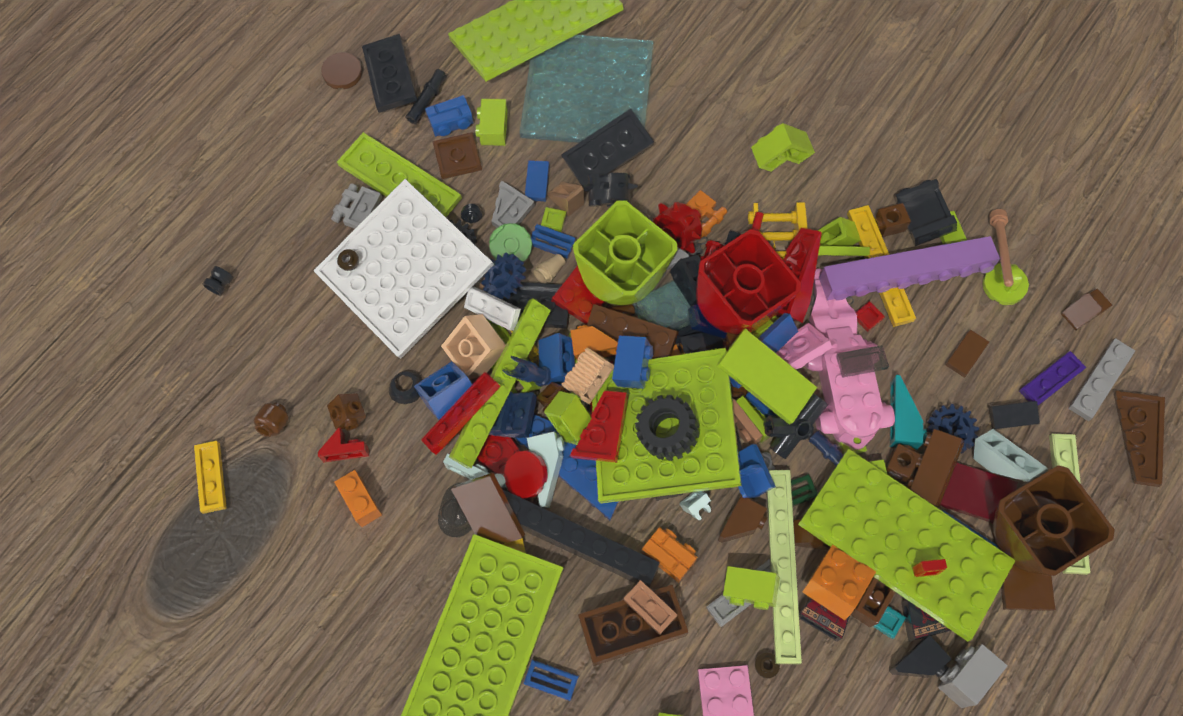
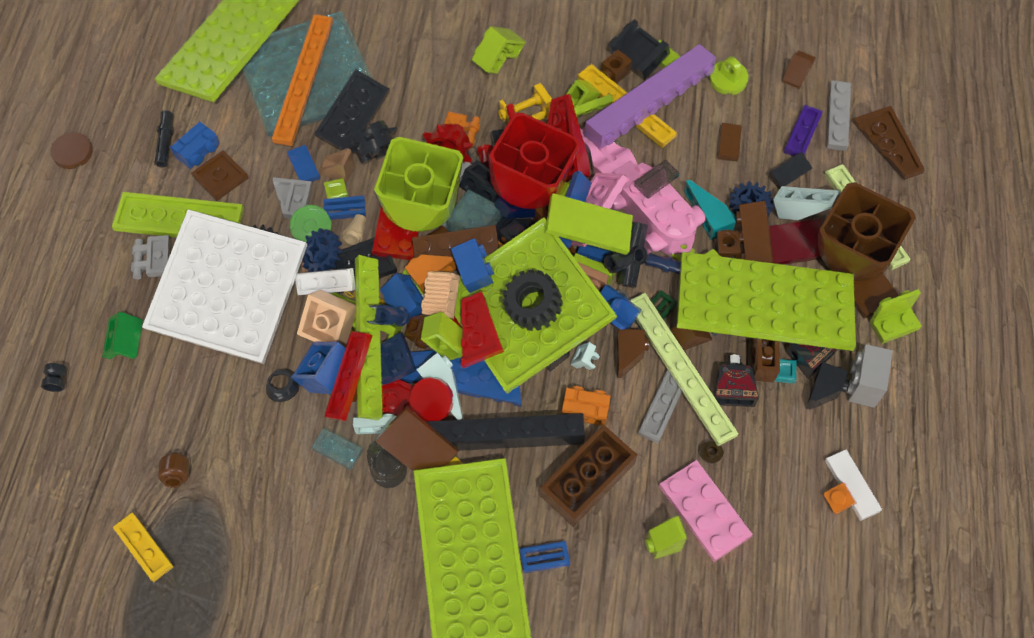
camera: 30 degrees left, 5 degrees down
(294, 271) = (122, 336): none -> green panel
(336, 449) = (251, 466): red slope -> none
(346, 411) = (241, 428): reddish brown brick -> none
(351, 264) = (177, 303): dark brown plate -> none
(358, 498) = (293, 495): orange brick -> none
(389, 73) = (119, 132): black plate -> none
(420, 474) = (337, 449): none -> clear light blue plate
(471, 213) = (260, 216): black plate -> none
(492, 122) = (238, 134): lime brick -> none
(578, 96) = (302, 80): none -> orange plate
(650, 607) = (596, 449): nougat plate -> none
(751, 587) = (667, 395): lime brick -> none
(839, 582) = (733, 355): orange brick -> none
(869, 316) = (639, 148): red tile -> none
(929, 568) = (796, 306): red tile -> none
(998, 220) = (697, 31): nougat piece -> none
(1036, 628) = (895, 317): none -> lime bracket

